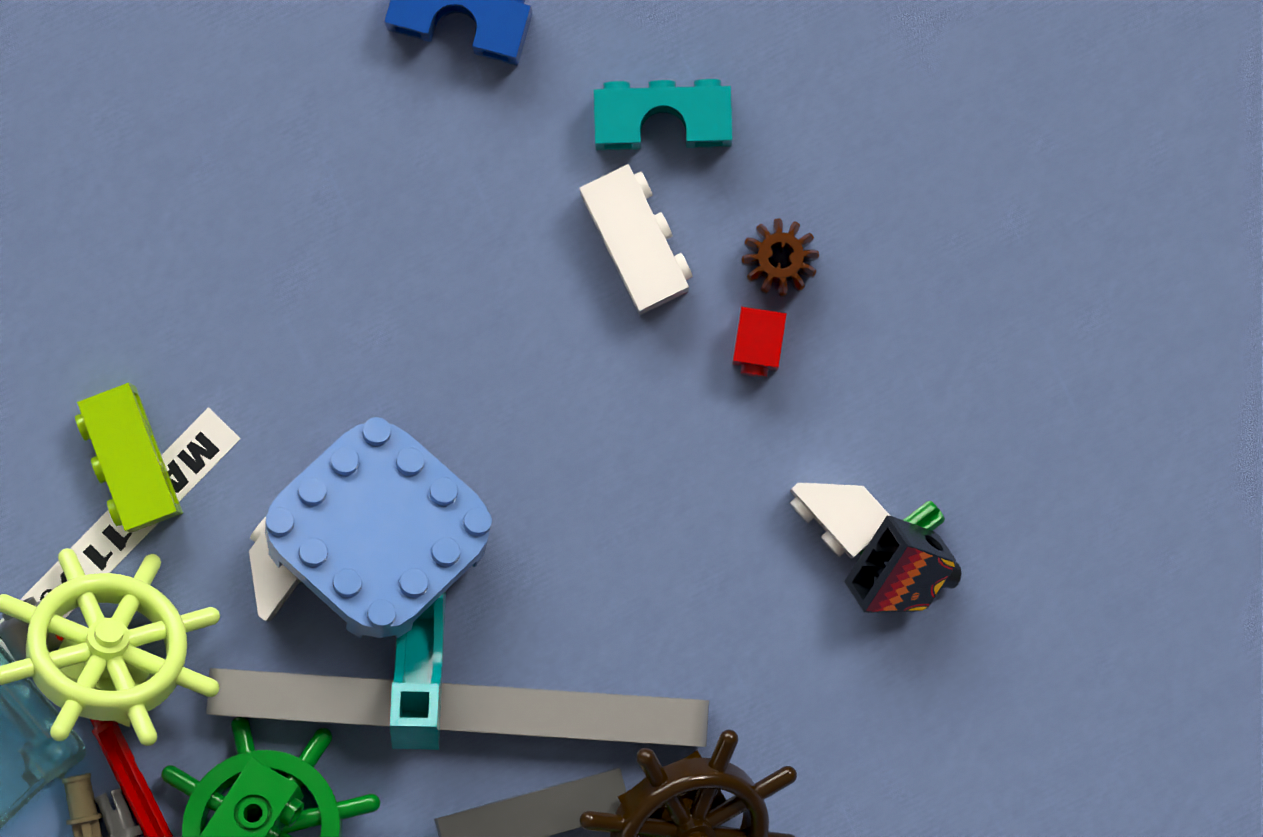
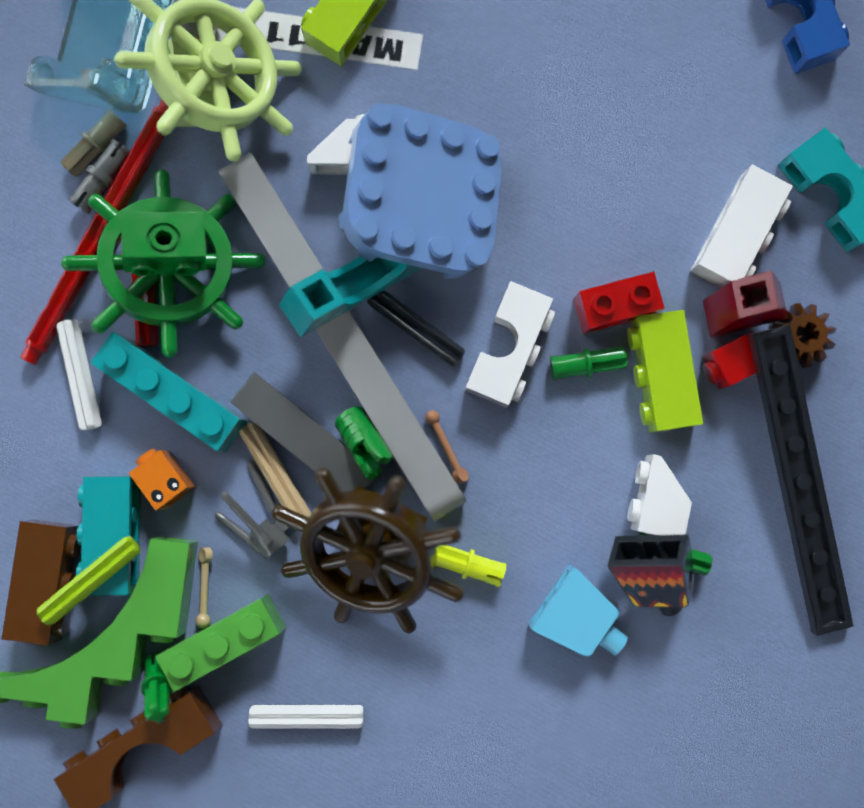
camera: 50 degrees right, 0 degrees up
(504, 626) = (417, 327): none -> black axle
(569, 512) = (524, 314): none -> white arch
(578, 760) = (363, 441): none -> green hinge
(621, 413) = (618, 302): none -> red brick
(658, 483) = (588, 362): none -> green axle
(678, 688) = (459, 474): none -> nougat hinge
(712, 293) = (745, 304): none -> dark red slope
(720, 416) = (665, 371): none -> lime brick
(772, 741) = (471, 565): none -> neon yellow axle
(896, 671) = (578, 616): none -> medium azure torso
(917, 363) = (800, 479): none -> black tile

